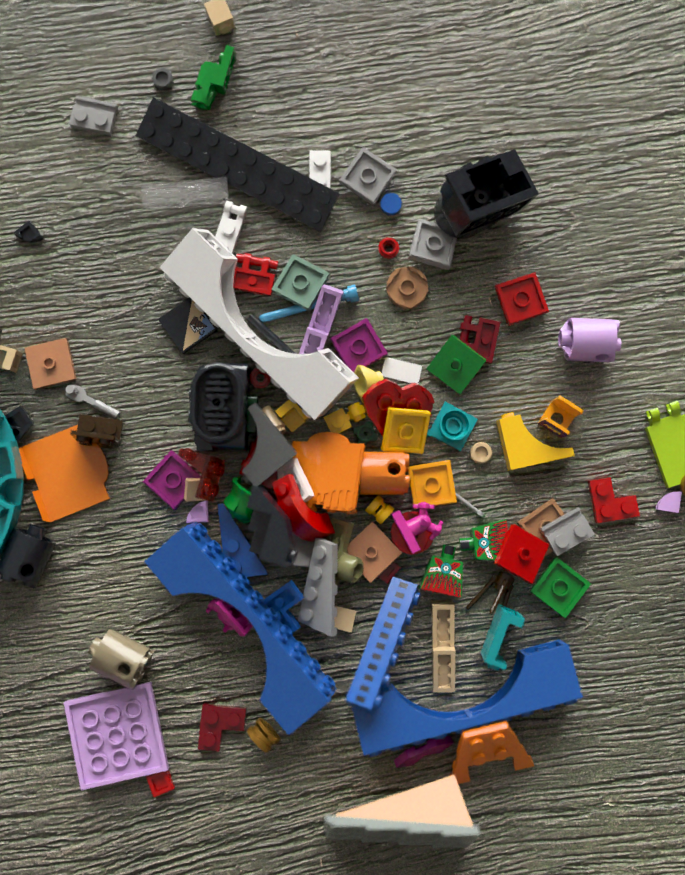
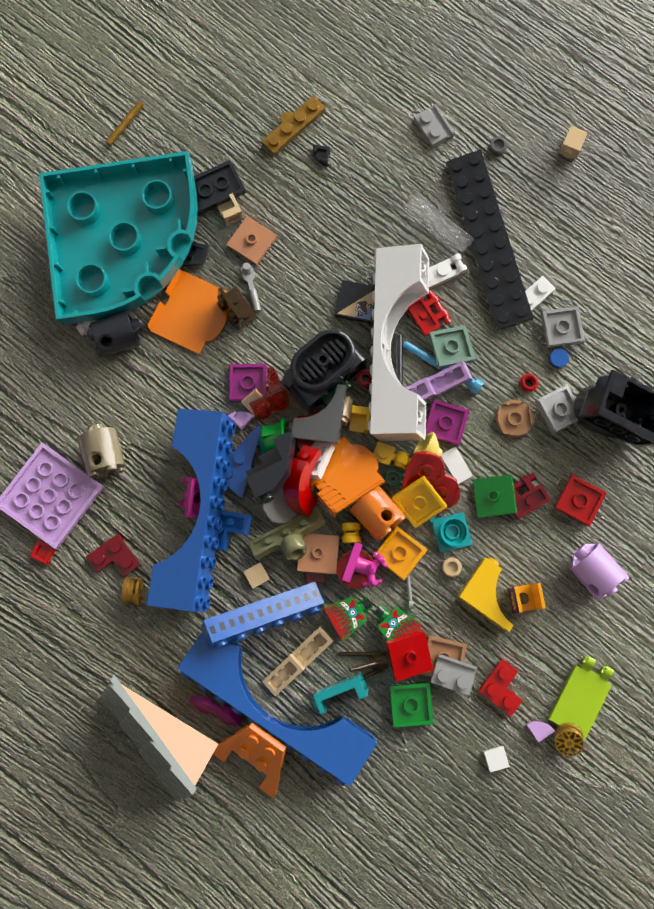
camera: 50 degrees right, 5 degrees down
(213, 79) = (529, 176): green plate -> none
(320, 589) = (252, 547): light grey wing -> none
(661, 558) = (496, 758): none -> white tile

